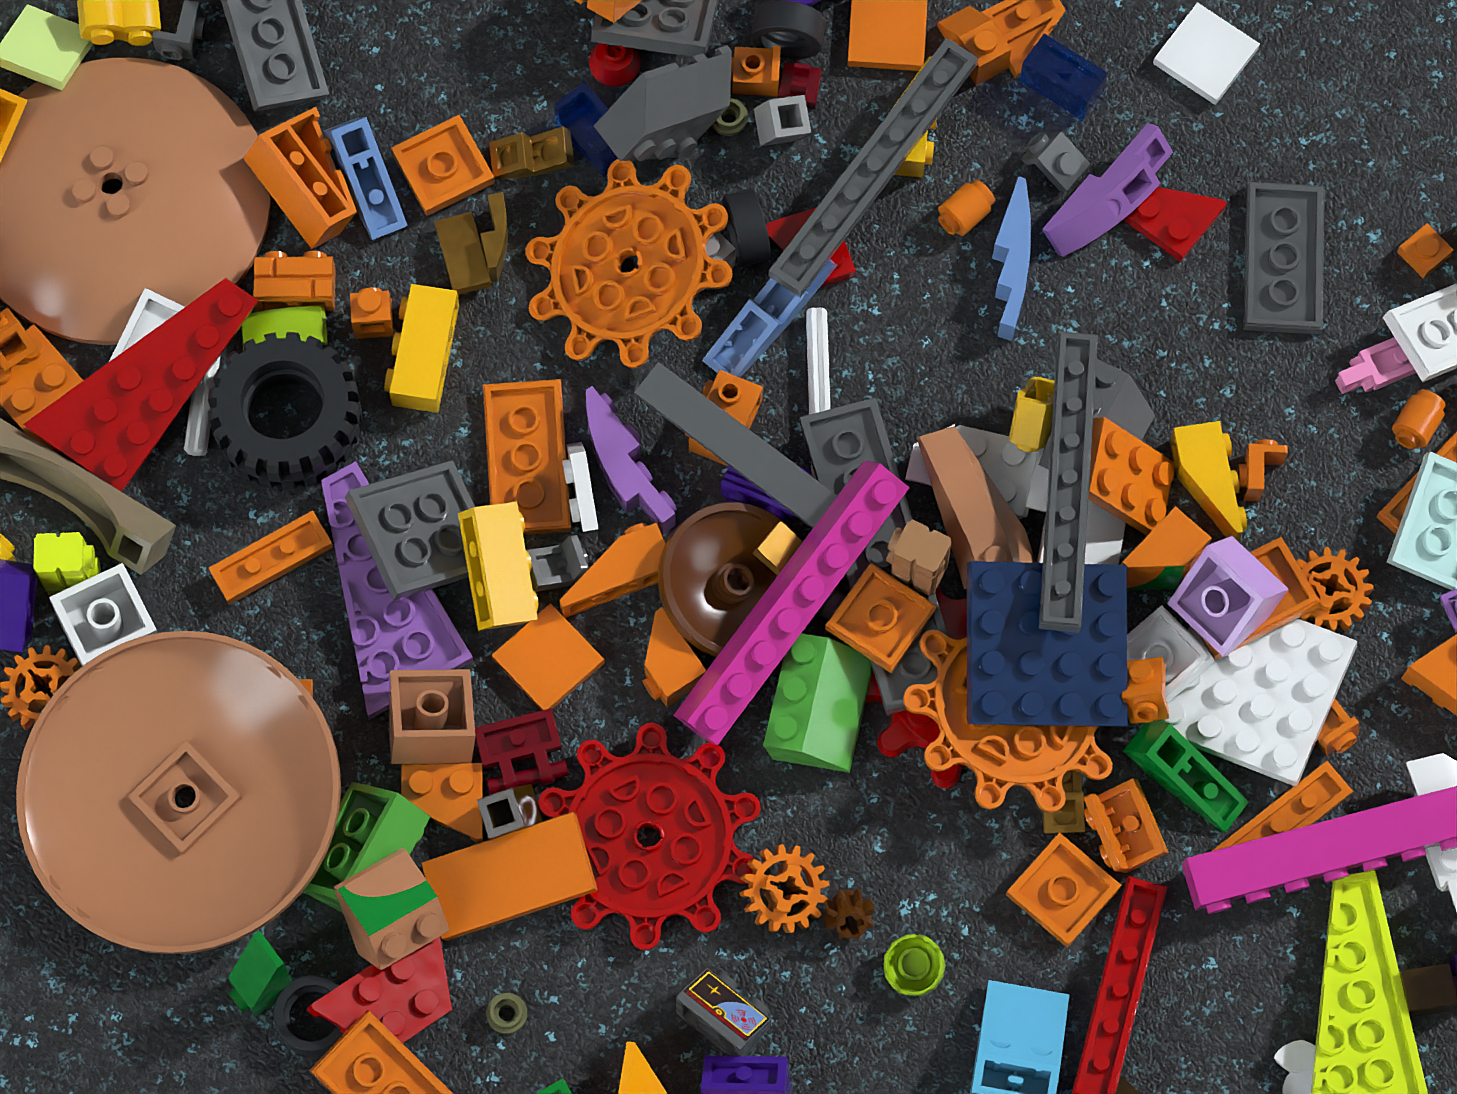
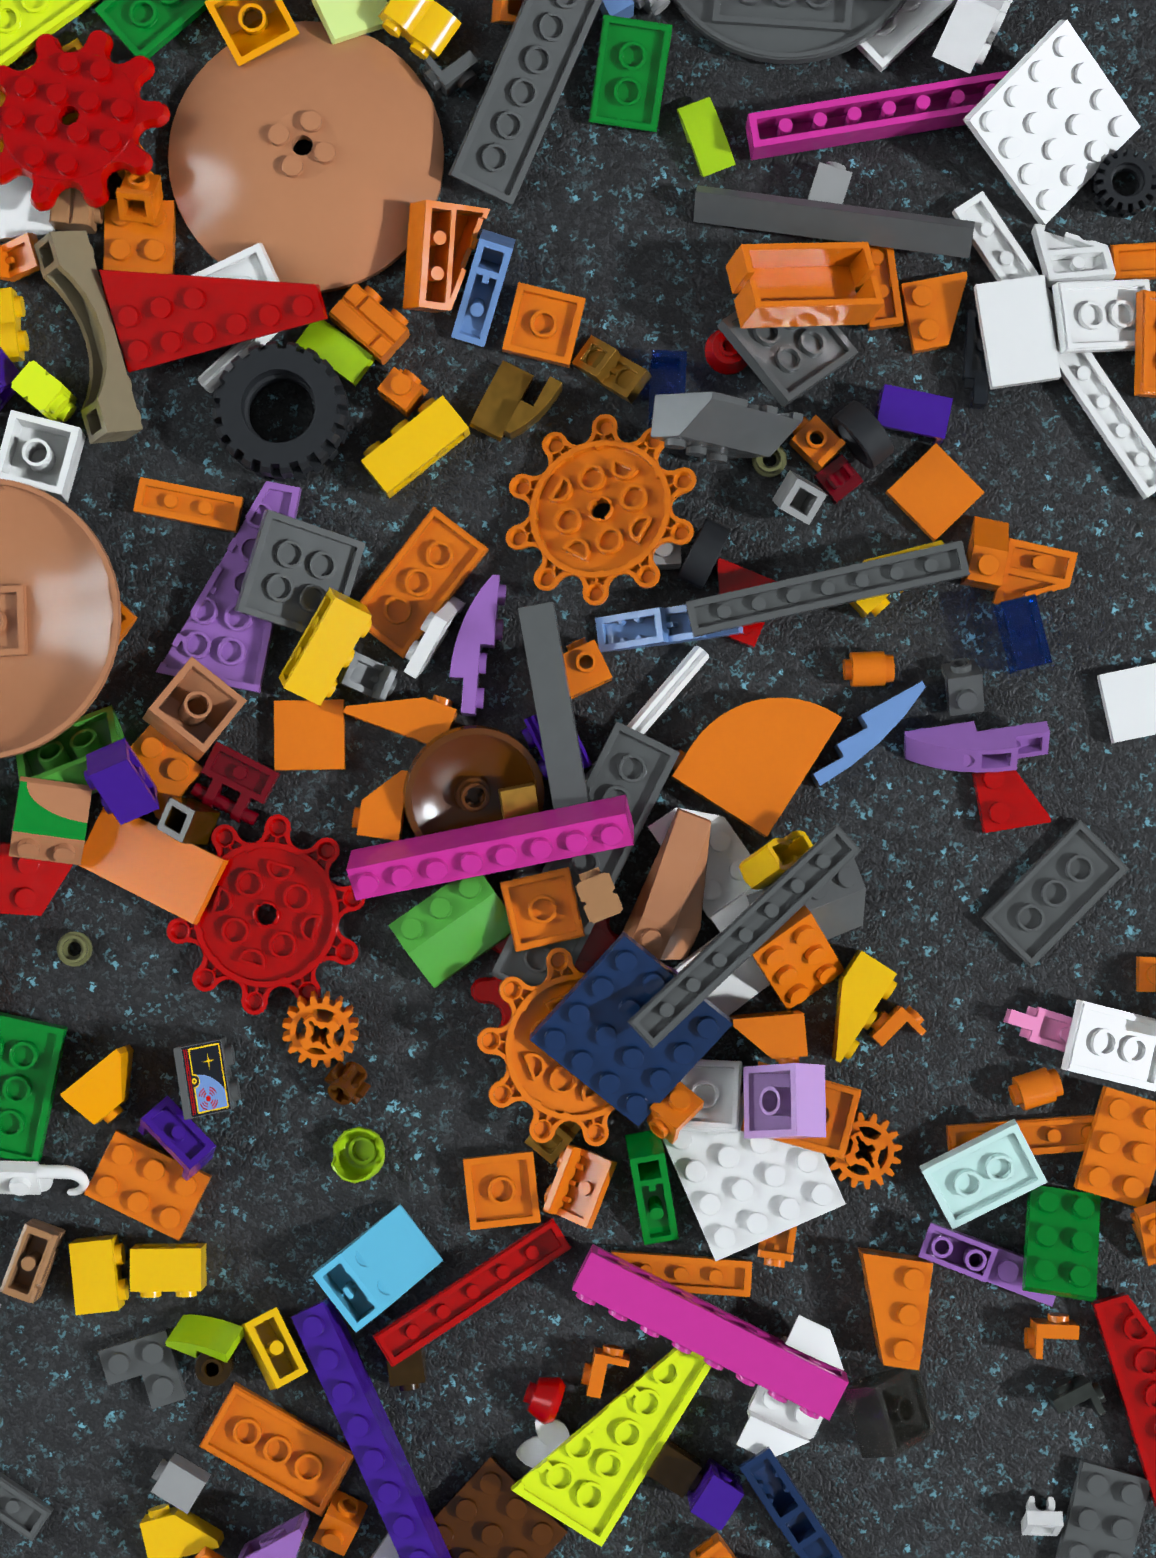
camera: 40 degrees right, 15 degrees up
(424, 820) = (121, 781): none -> dark purple brick
(942, 355) = (756, 758): none -> orange brick
(1264, 1030) = (544, 1398): none -> red cone
(1286, 970) = (594, 1373): none -> orange bracket

